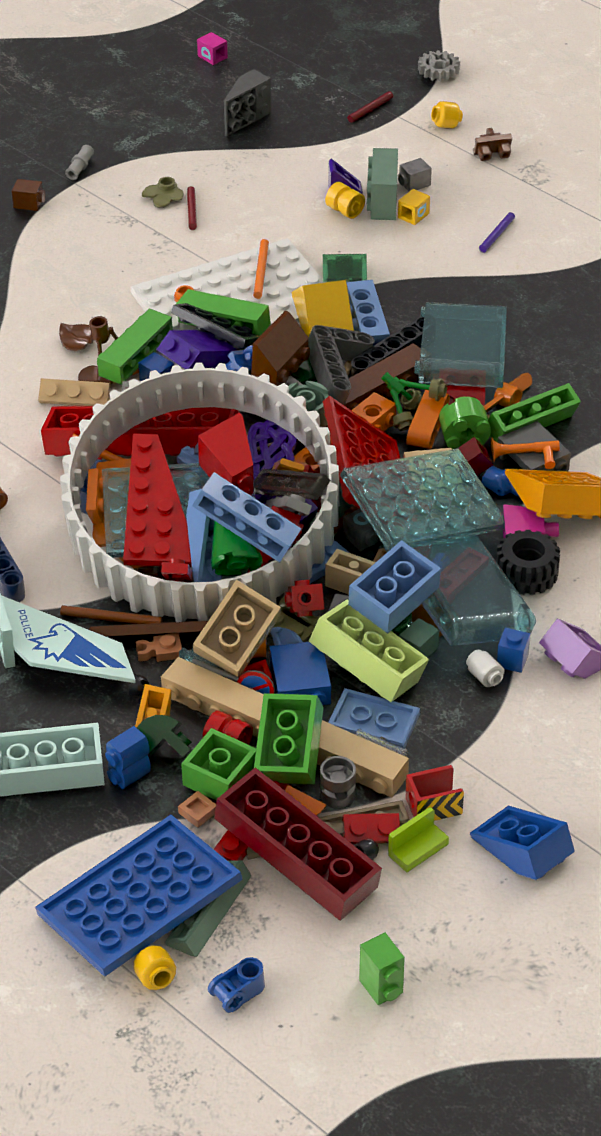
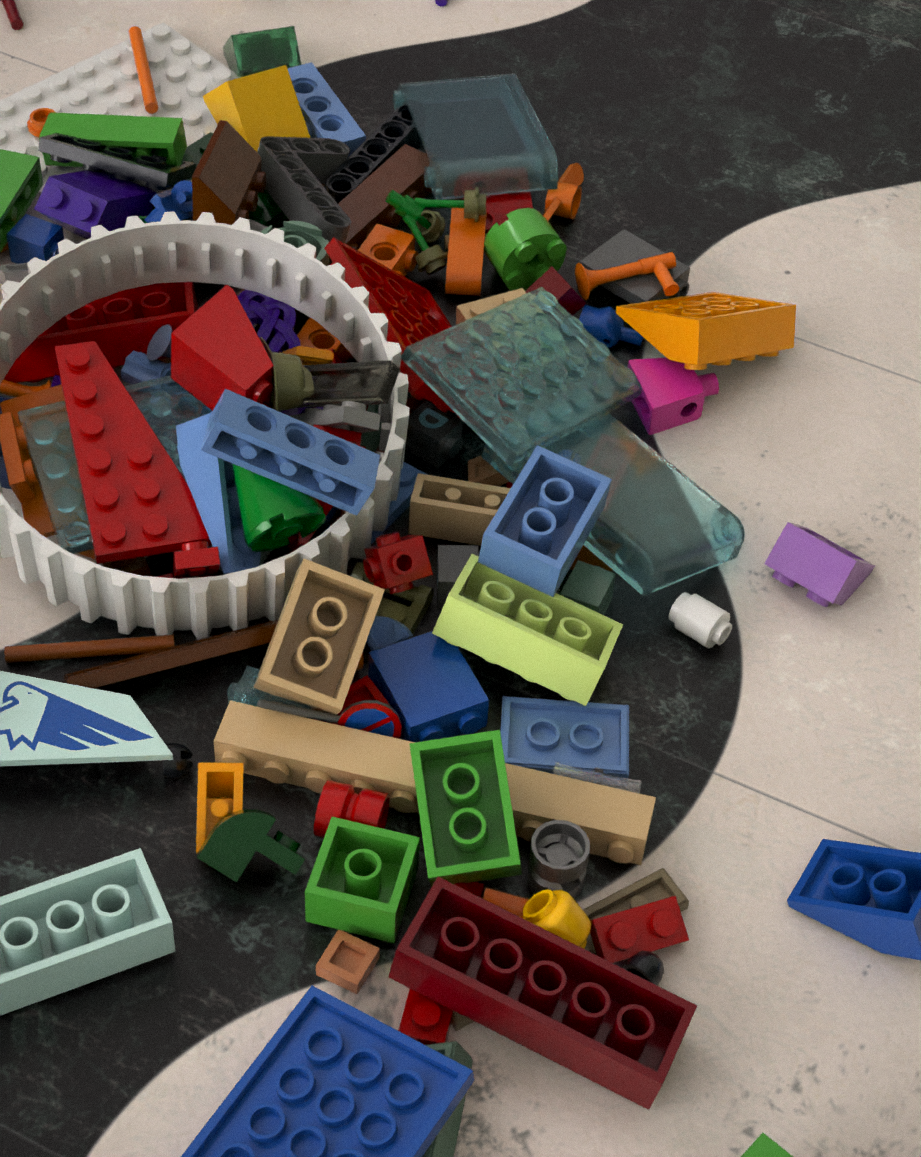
camera: 20 degrees left, 5 degrees up
(127, 757) = (207, 898): blue brick -> none
(163, 647) = (192, 684): nougat plate -> none
(264, 476) = (290, 380): none -> olive piece
(323, 806) = (558, 914): none -> yellow head
(416, 840) = (716, 938): lime panel -> none
(434, 790) = (719, 872): red piece -> none
(513, 649) = (732, 581): blue brick -> none
(529, 560) = (699, 437): black tyre -> none
(545, 408) = (623, 209): bright green brick -> none

